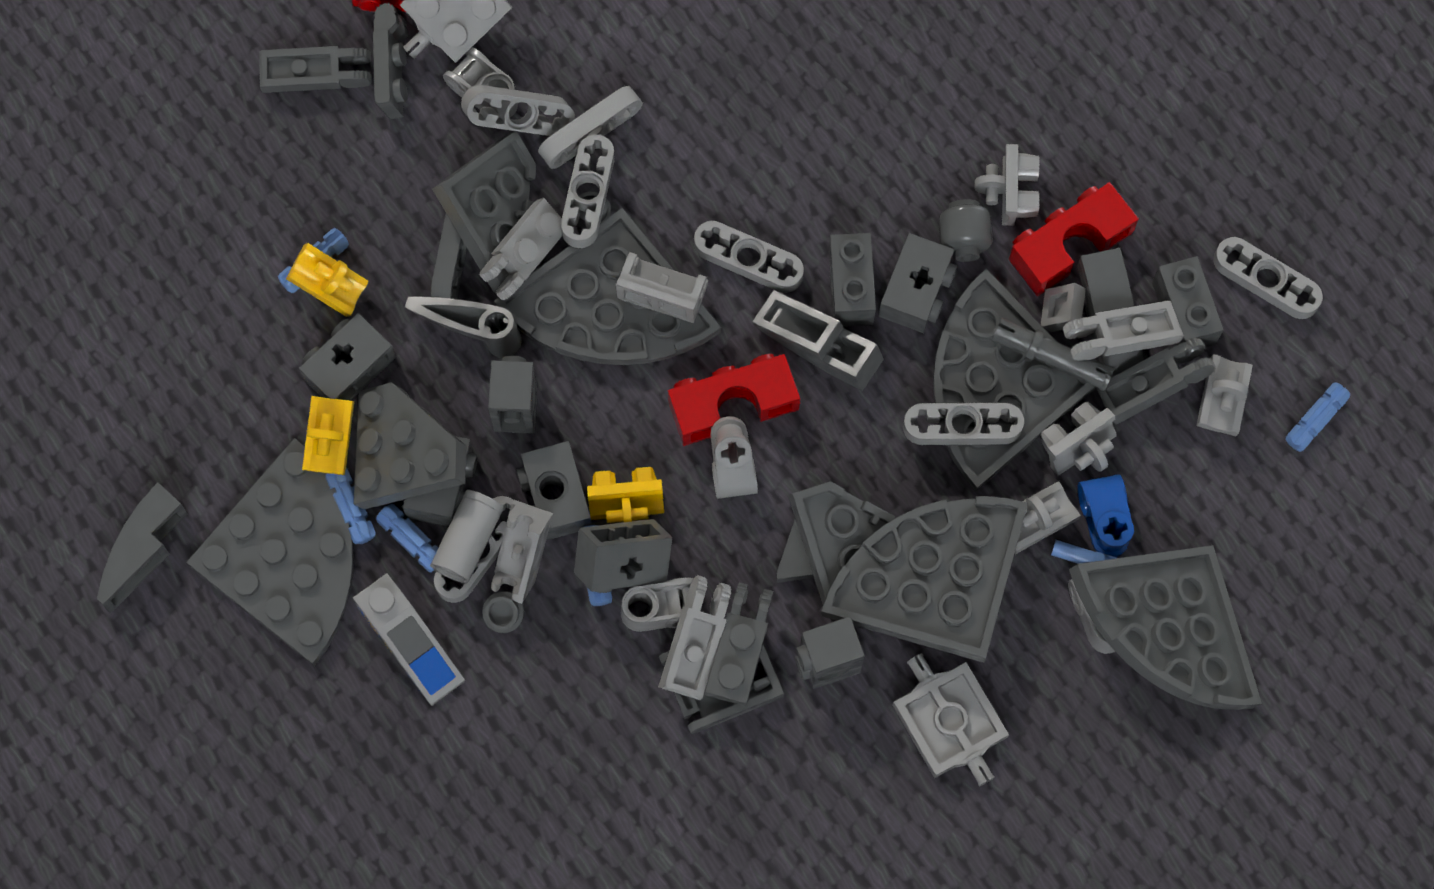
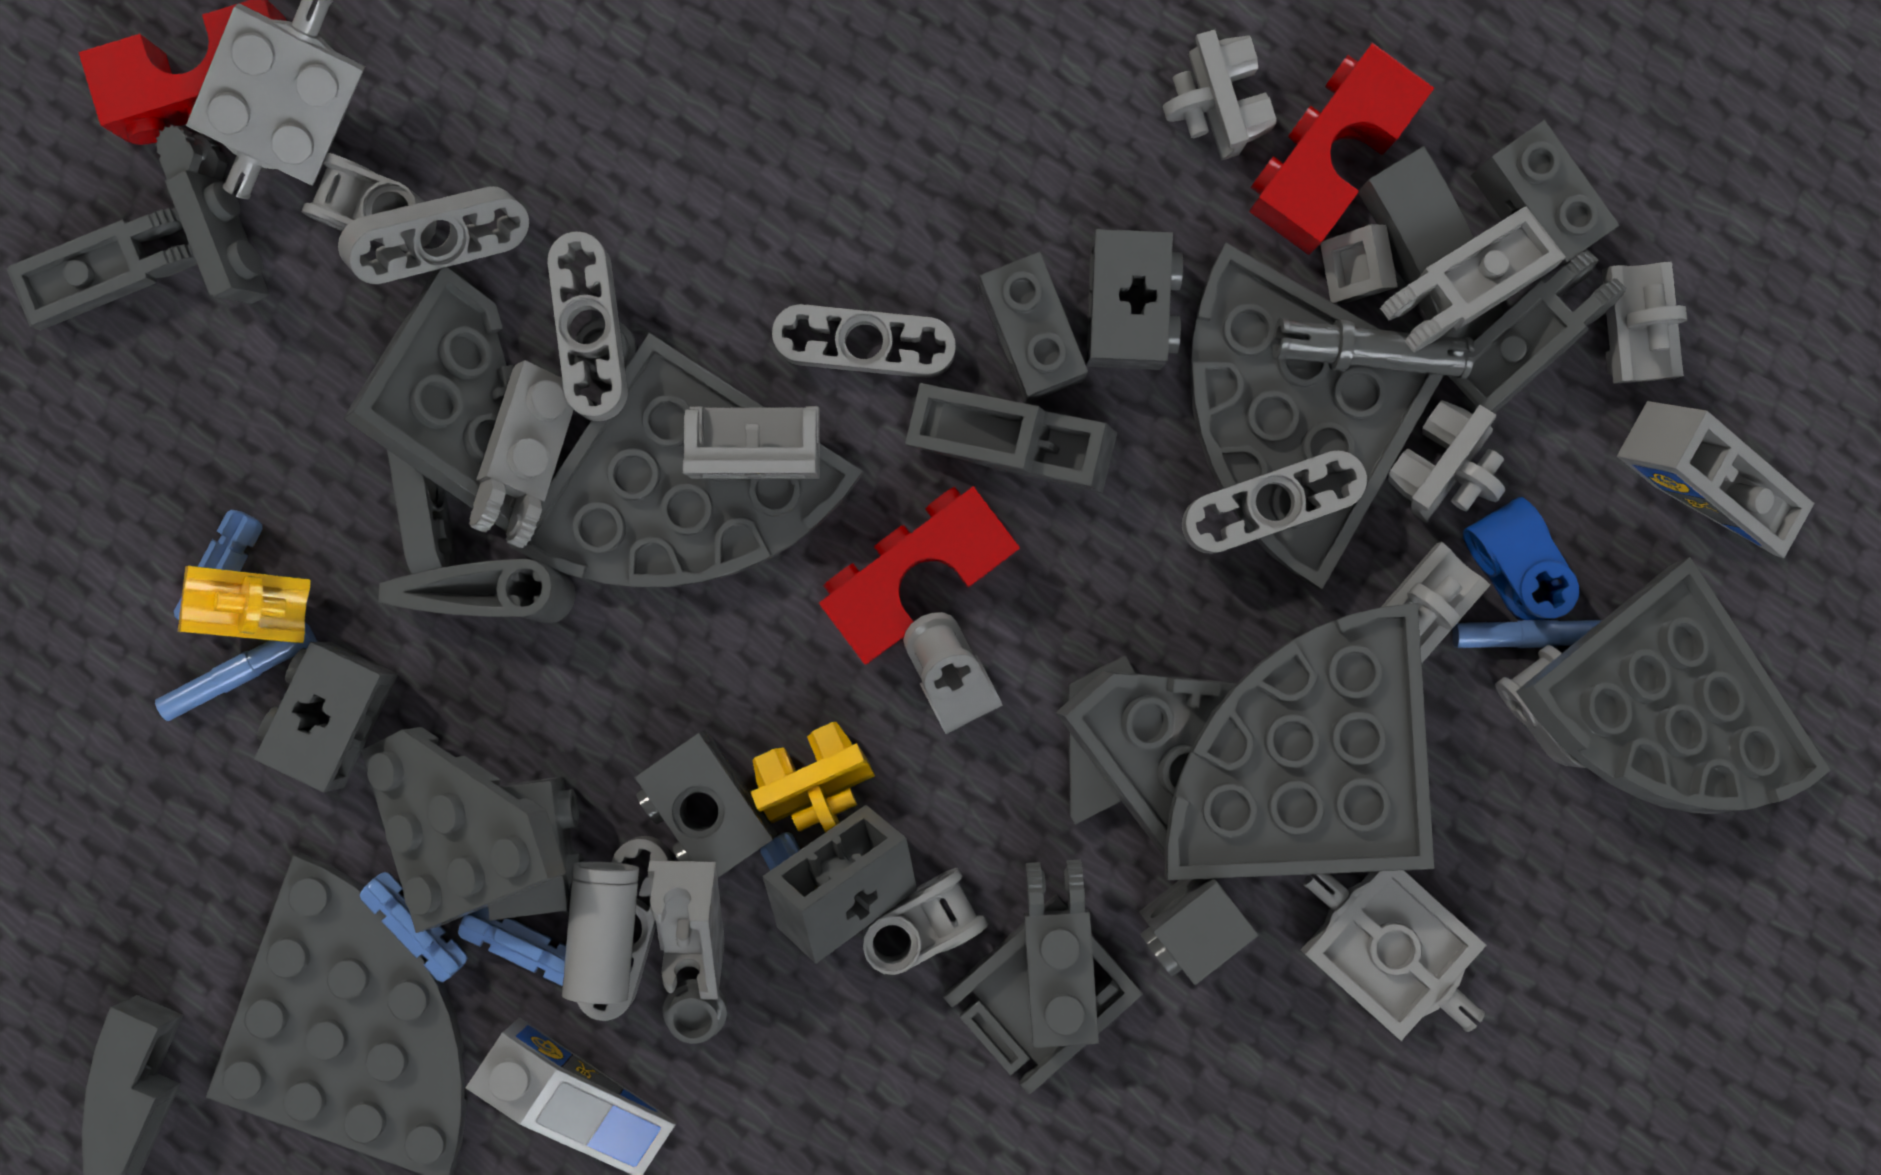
camera: 20 degrees left, 15 degrees up
(295, 323) = (229, 675): none -> medium blue piece
(328, 435) = (336, 847): yellow hips -> none
(512, 395) = (588, 690): dark grey brick -> none
(596, 121) = (555, 214): light grey beam -> none
(695, 641) = (992, 973): light grey hinge -> none
(966, 229) = (1176, 191): dark grey head -> none
(1245, 503) = (1715, 474): none -> light grey slope
(1264, 261) = (1682, 138): light grey beam -> none
(1317, 417) = (1779, 304): medium blue axle -> none

